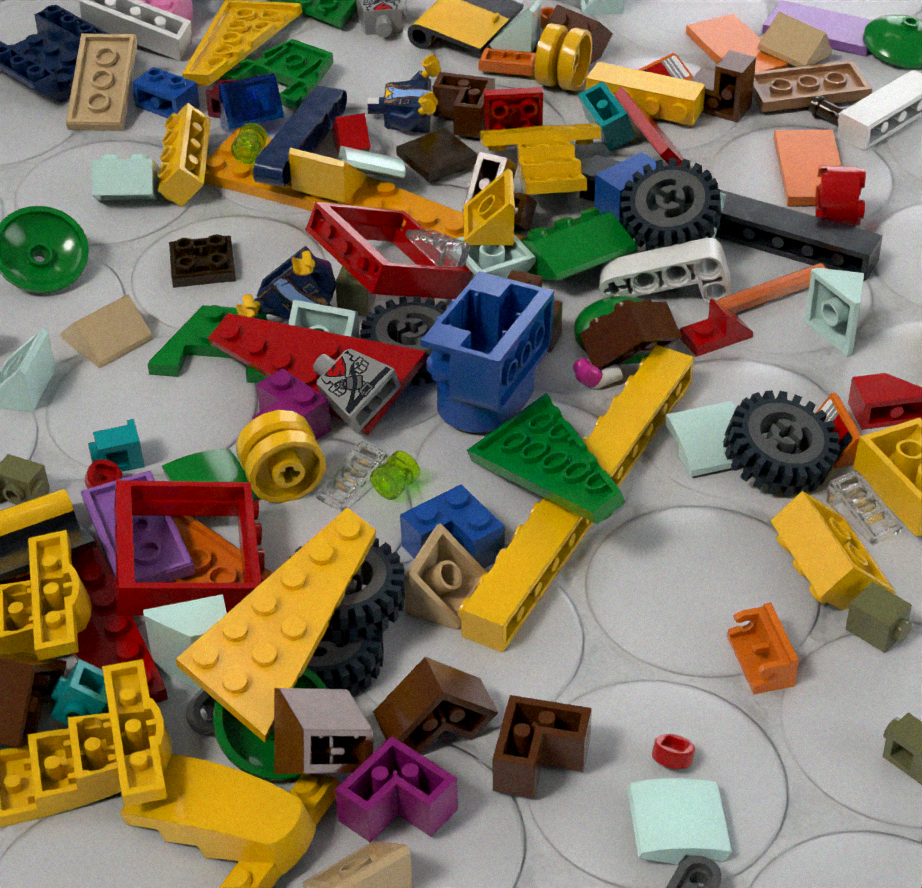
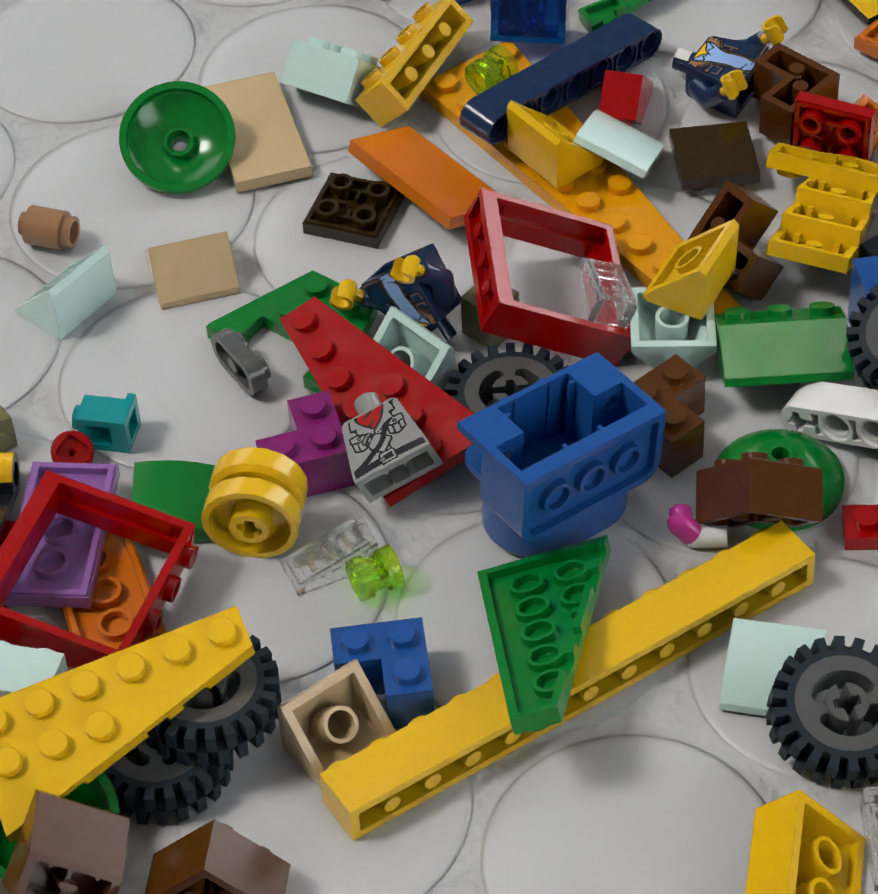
camera: 30 degrees right, 5 degrees up
(109, 239) = (266, 136): none -> tan tile
(192, 377) = (240, 362): none -> dark grey plate
(243, 223) = (420, 173): none -> orange tile

